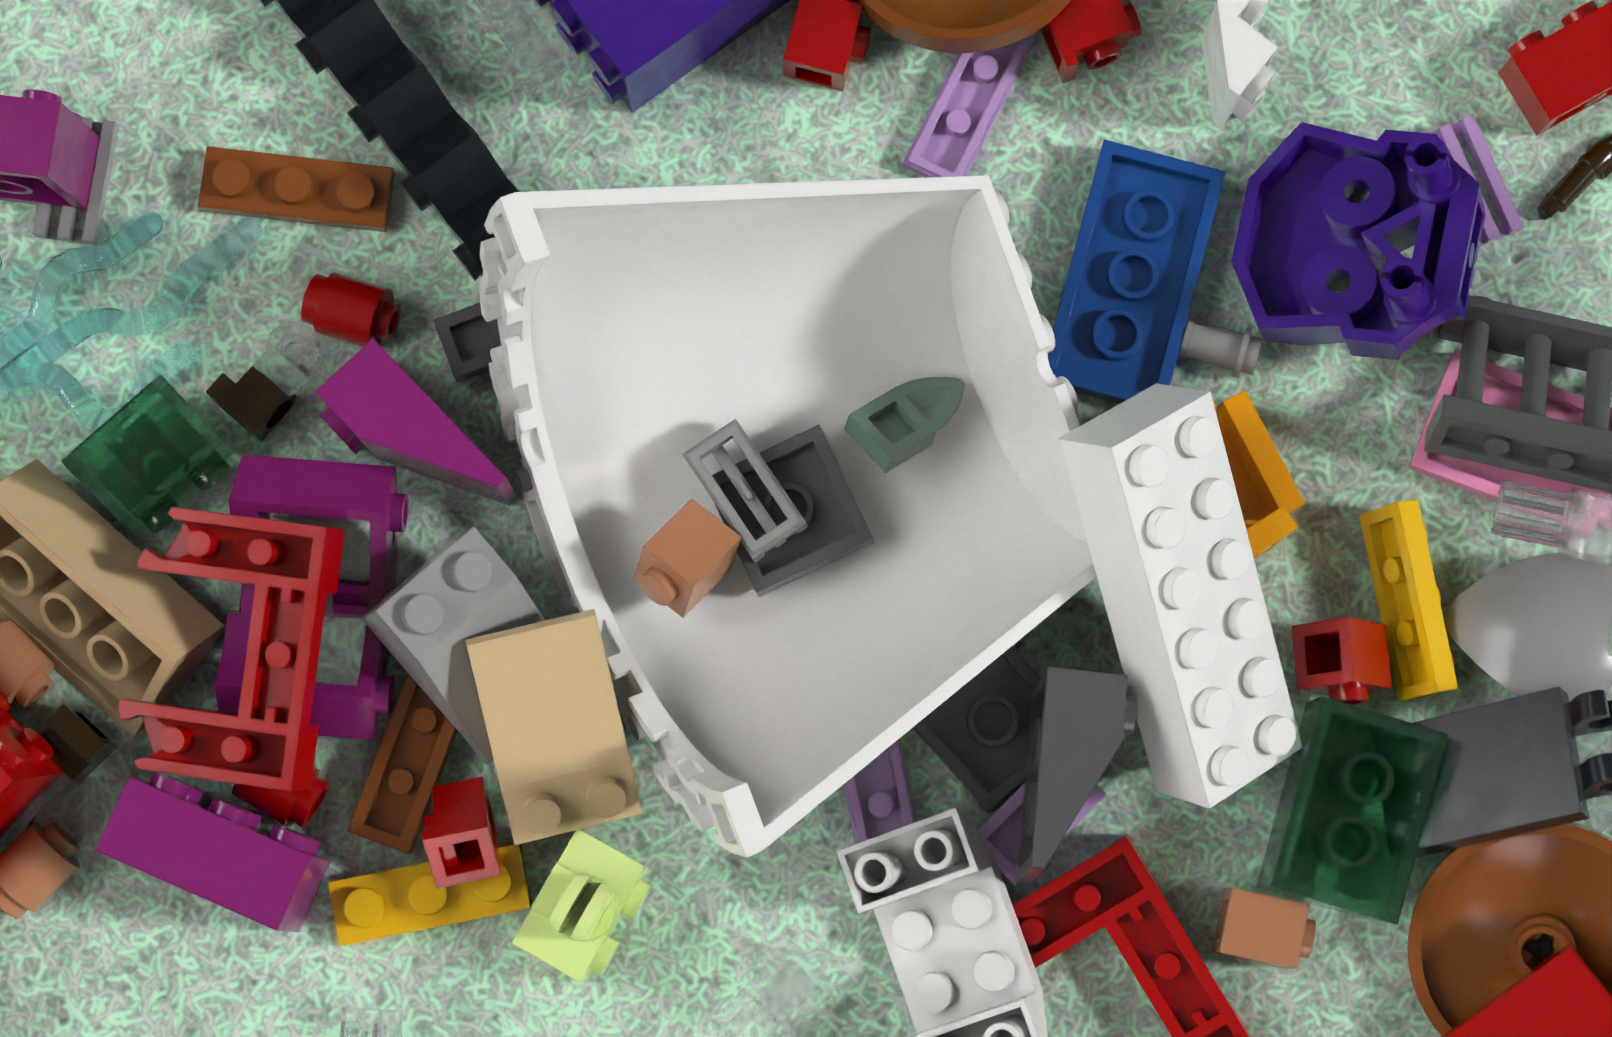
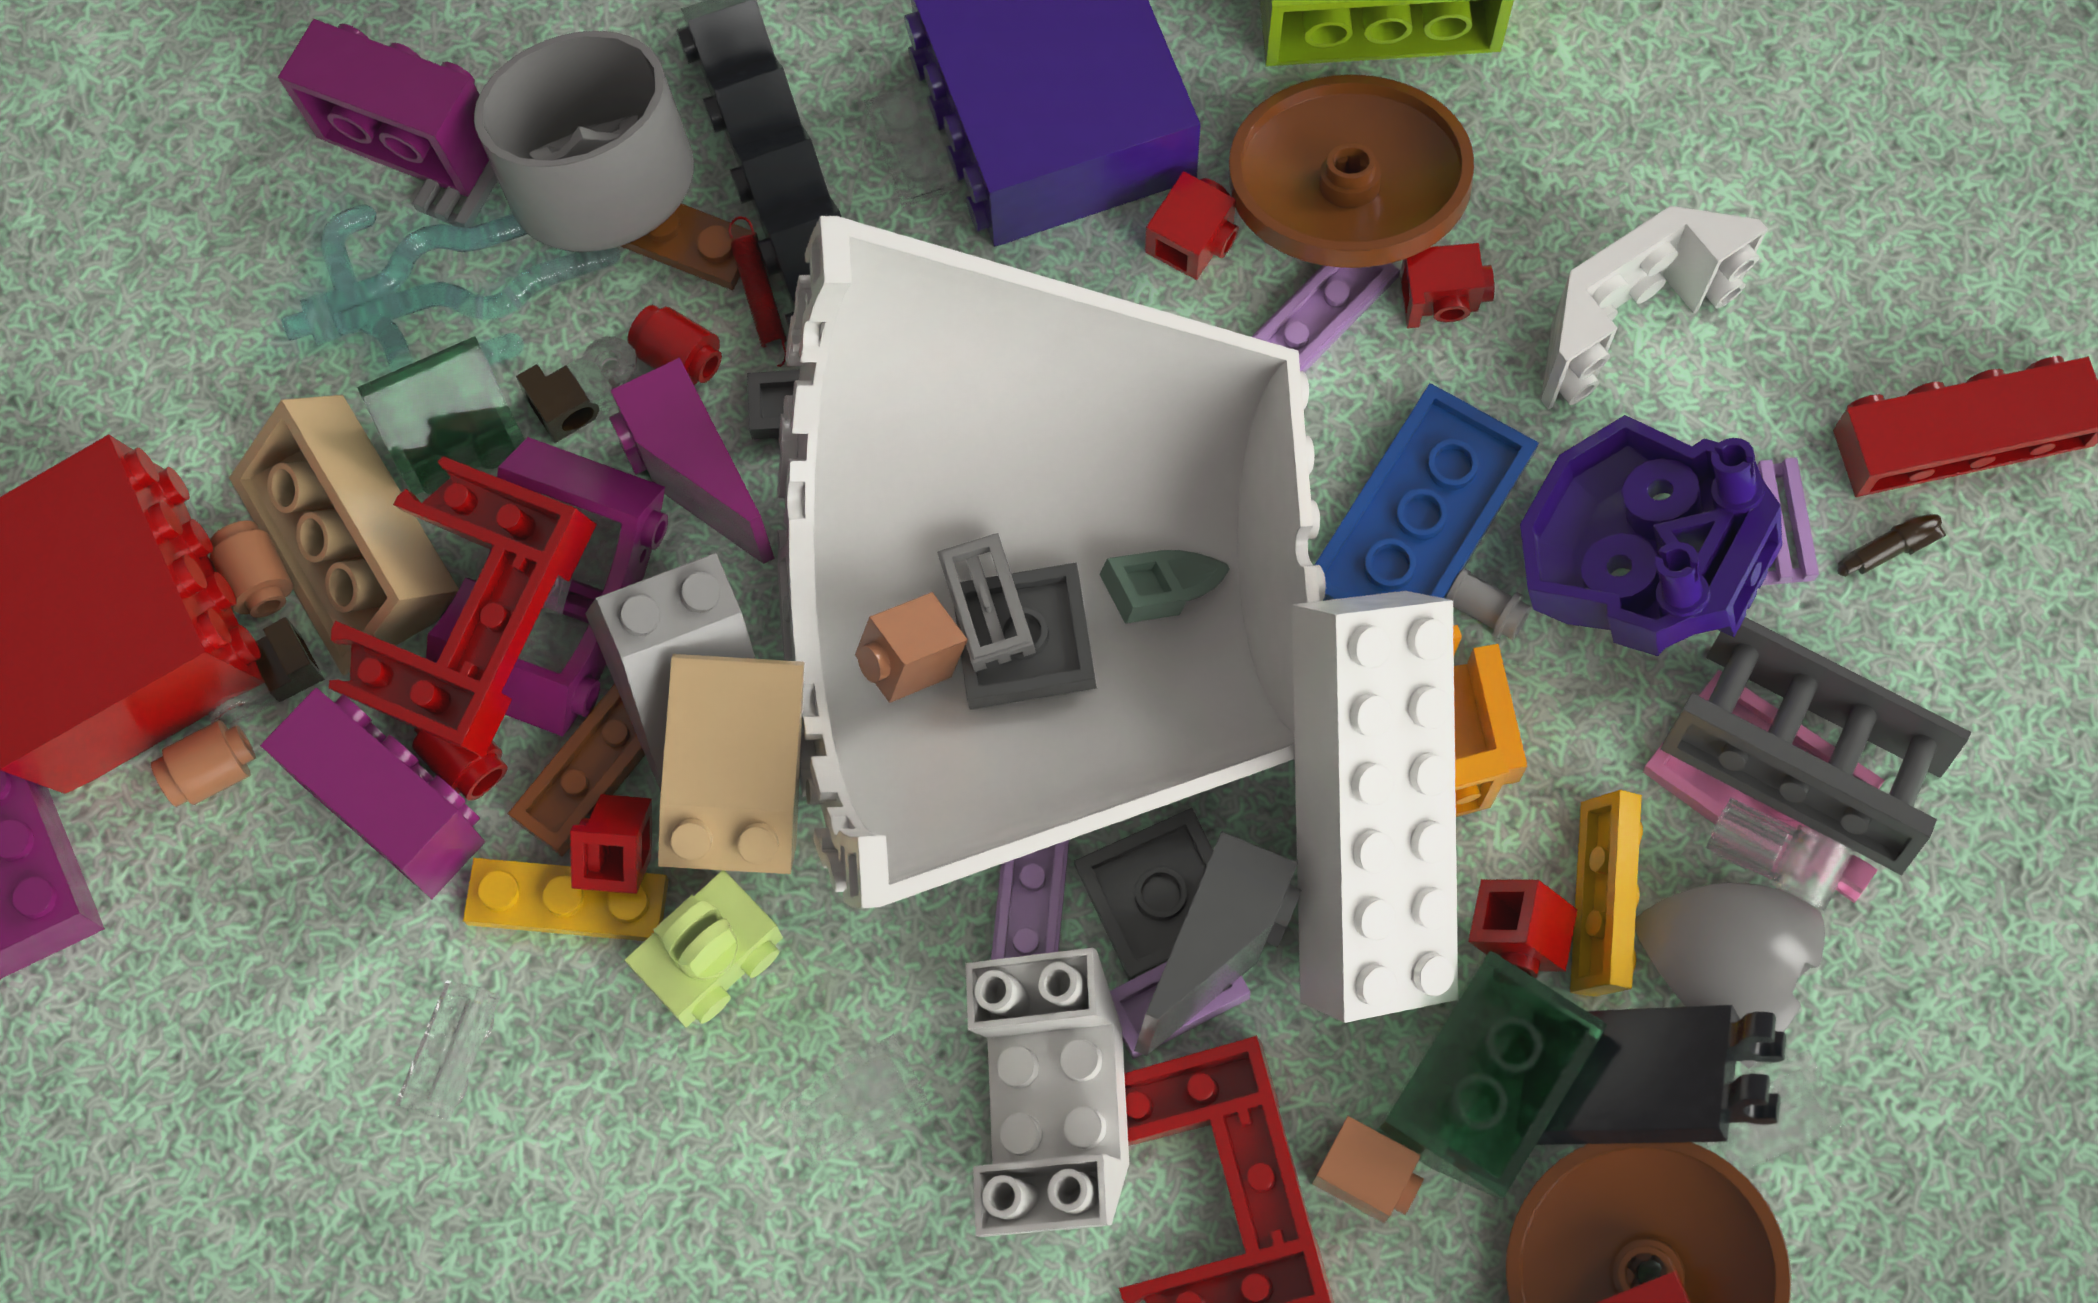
camera: 20 degrees right, 10 degrees down
(195, 128) = (585, 140): none -> light grey piece
(413, 227) = (757, 288): none -> red piece

